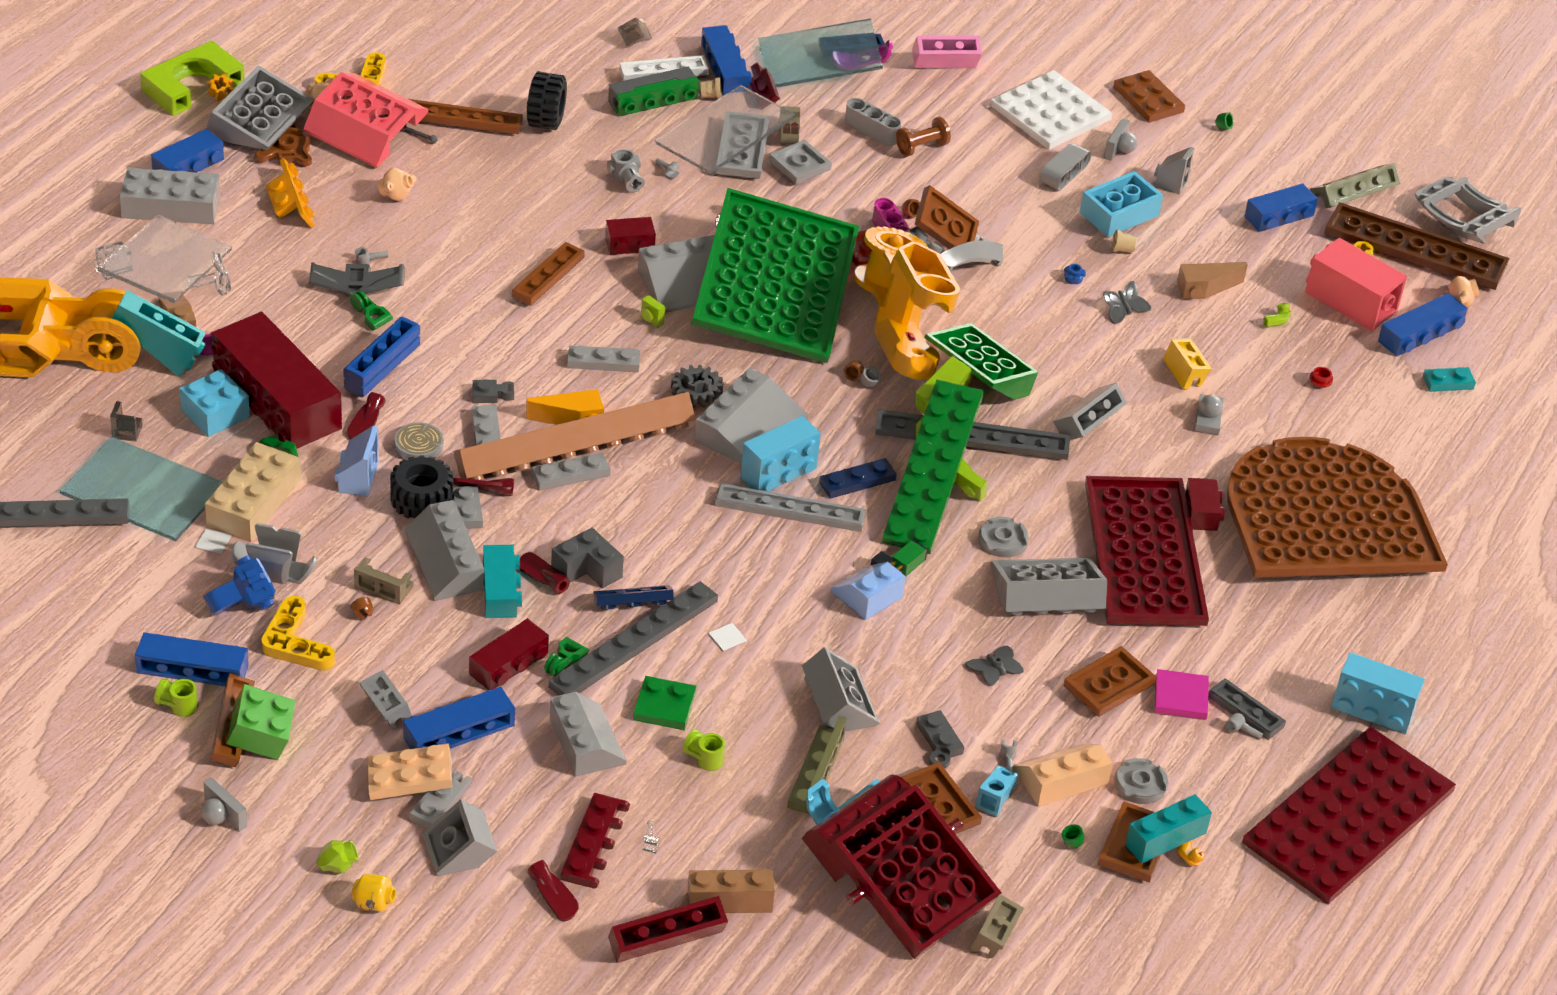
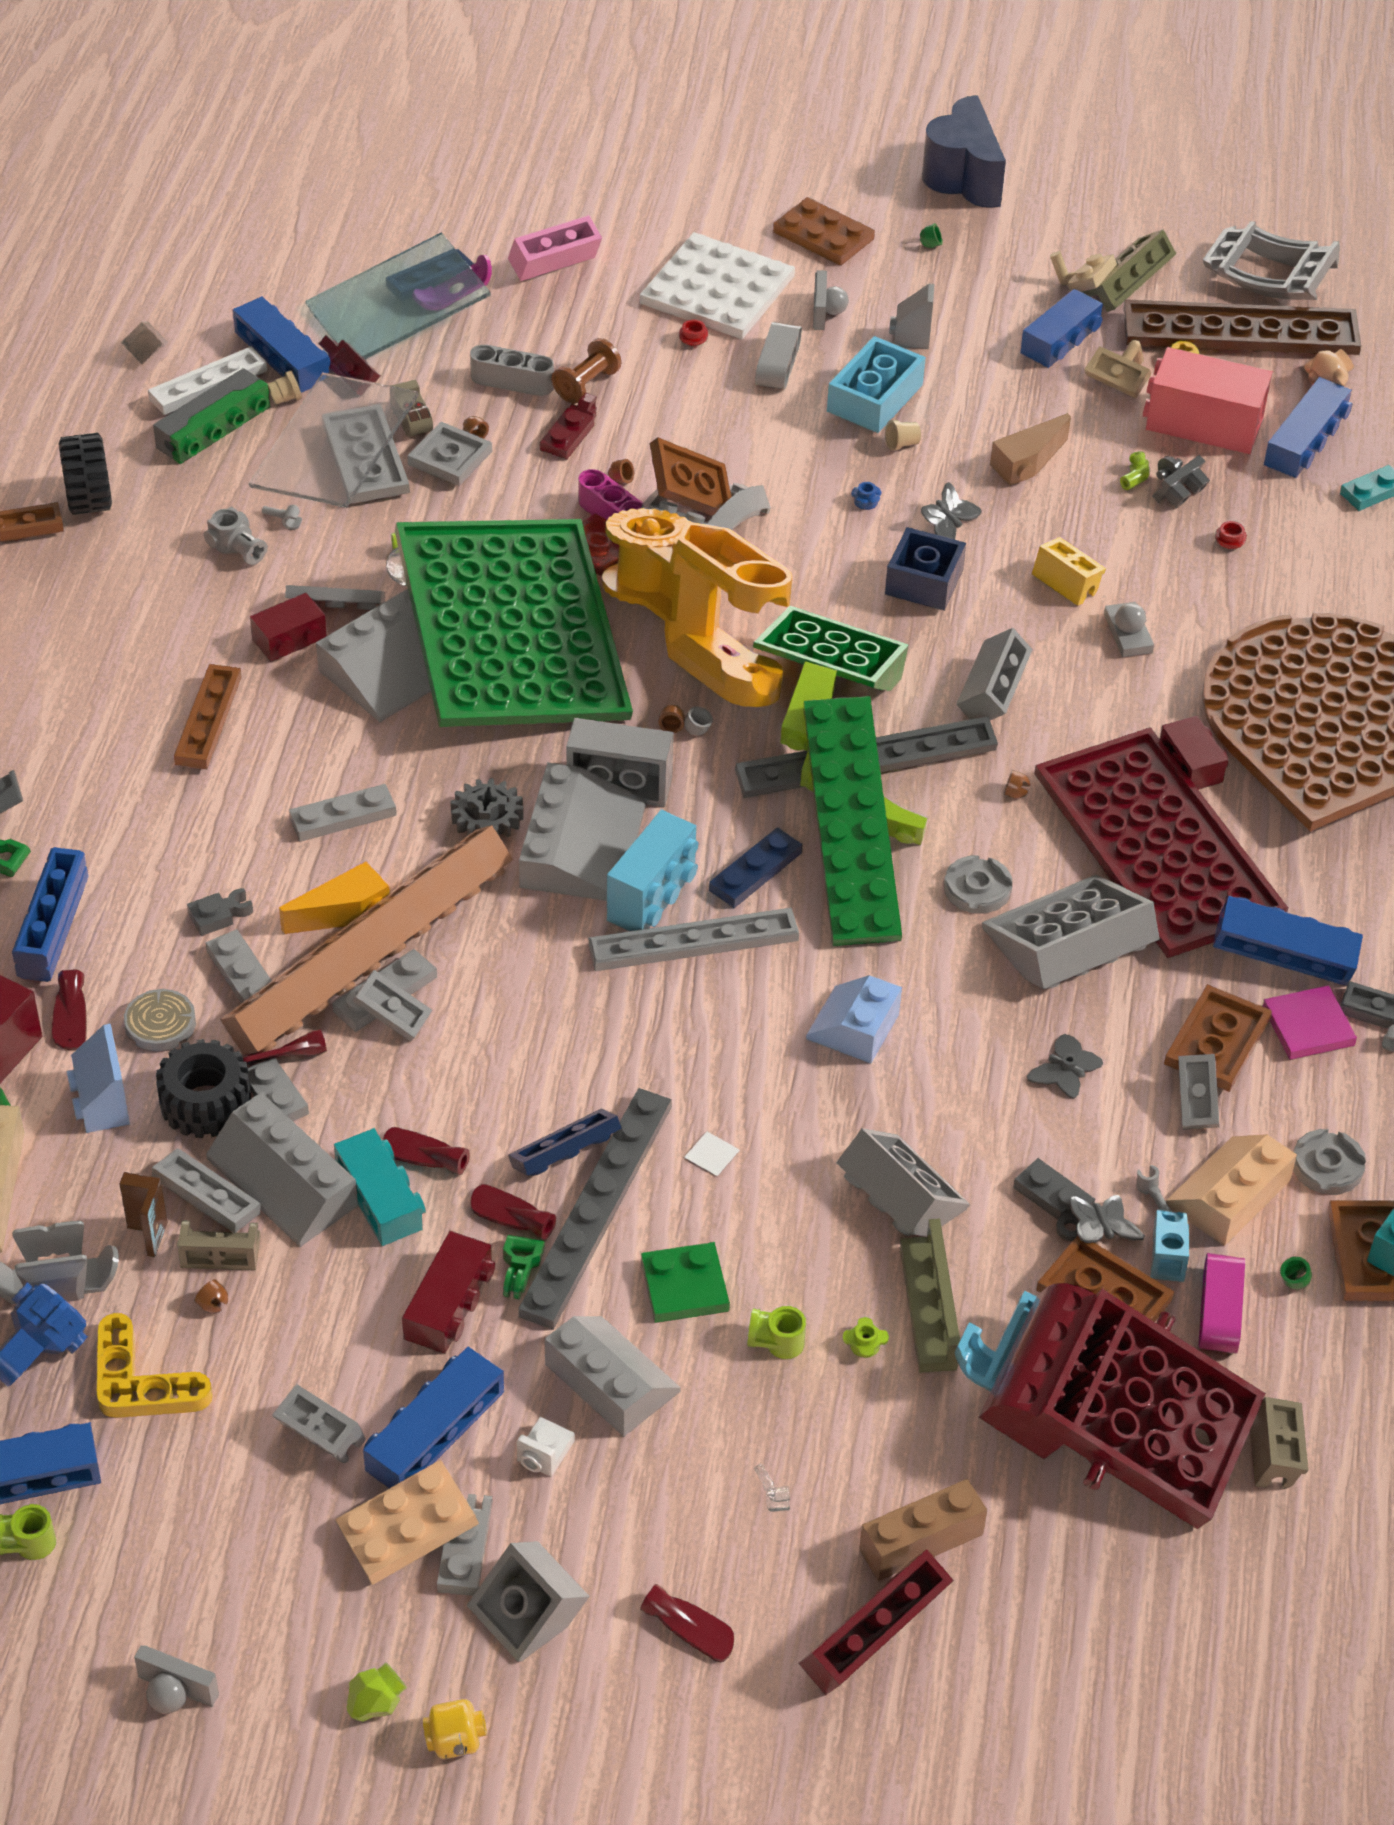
camera: 20 degrees left, 5 degrees up
(221, 751) = (120, 1540): dark orange plate -> none
(261, 722) = (166, 1529): bright green brick -> none
(346, 542) = (144, 1208): none -> reddish brown panel
(391, 547) = (206, 1190): none -> light grey plate
(520, 763) = (544, 1447): none -> white bracket
(567, 479) = (392, 1005): none -> light grey plate
(578, 625) = (511, 1211): none -> dark red piece
(588, 555) = (480, 1104): dark grey brick -> none
(592, 839) = (699, 1525): dark red hinge -> none
(652, 311) = (374, 724): lime plate -> none
(672, 227) = (338, 596): none -> light grey plate
(762, 774) = (865, 1346): none -> lime plate
(804, 380) = (625, 756): none -> light grey brick
(824, 149) = (476, 426): none -> dark orange hinge
(893, 170) = (570, 428): none -> dark red hinge
(905, 559) = (878, 960): green piece -> none
(961, 760) = (1103, 1219): none -> dark grey piece
(1011, 835) = (1221, 1303): none -> dark pink beam
(1014, 135) = (693, 332): none -> red plate
(1066, 483) = (1015, 783): none -> dark orange hinge
(1073, 707) = (1198, 1091): none -> light grey plate
(1083, 330) = (925, 568): none -> dark blue brick
(1193, 636) = (1288, 940): none -> blue brick
(1275, 71) = (964, 155): none -> dark blue brick
(1304, 246) = (1119, 371): none -> tan plate
(1305, 326) = (1177, 476): none -> dark grey hips
(1320, 178) = (1088, 276): none -> tan plate

